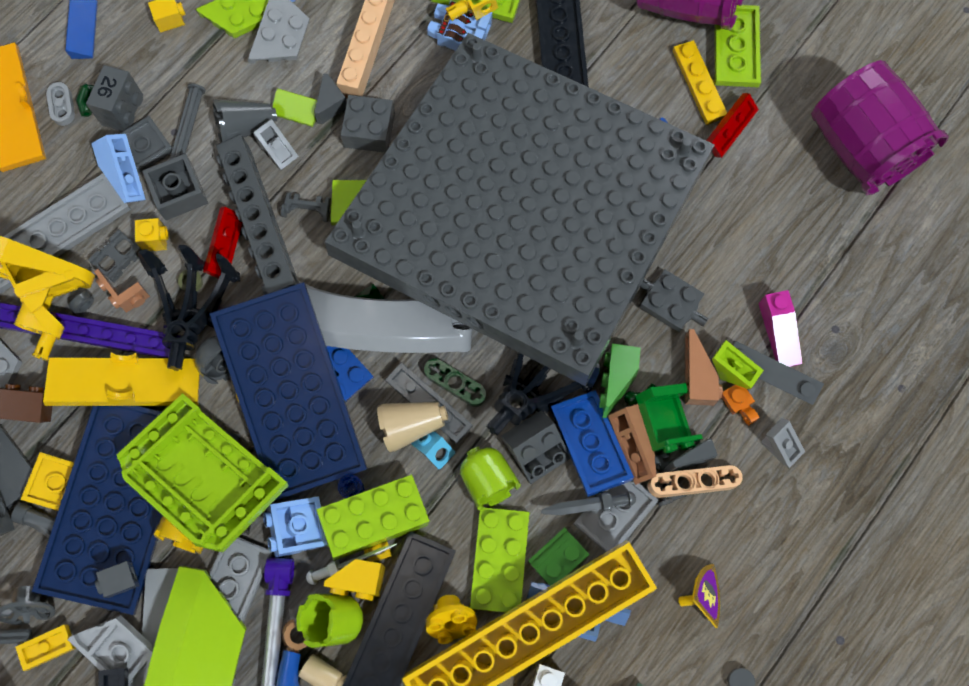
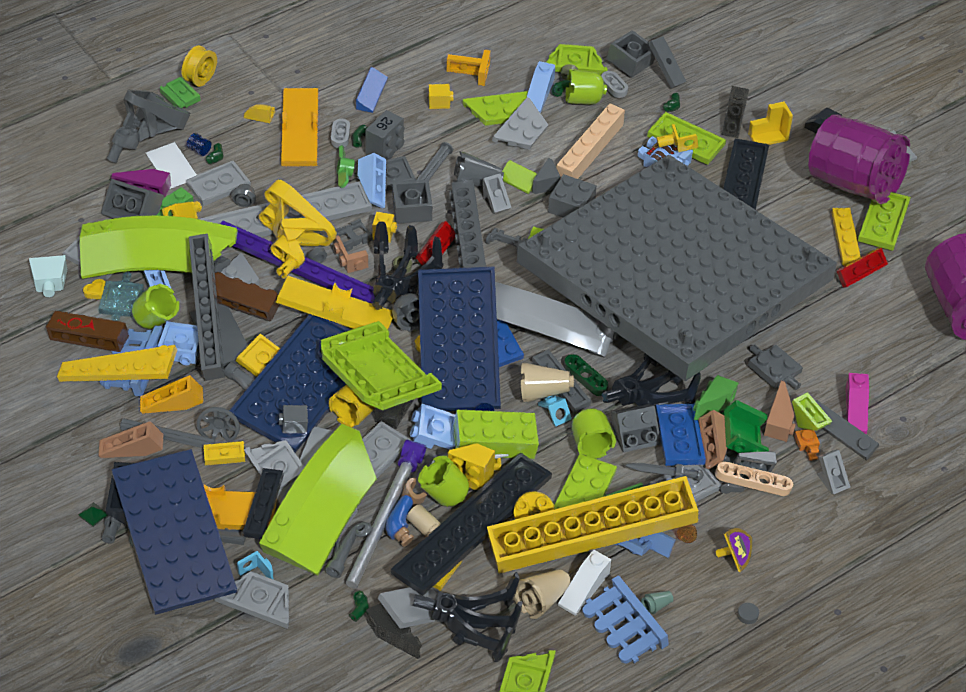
camera: 15 degrees right, 25 degrees down
(79, 156) = (344, 168): none -> bright green piece

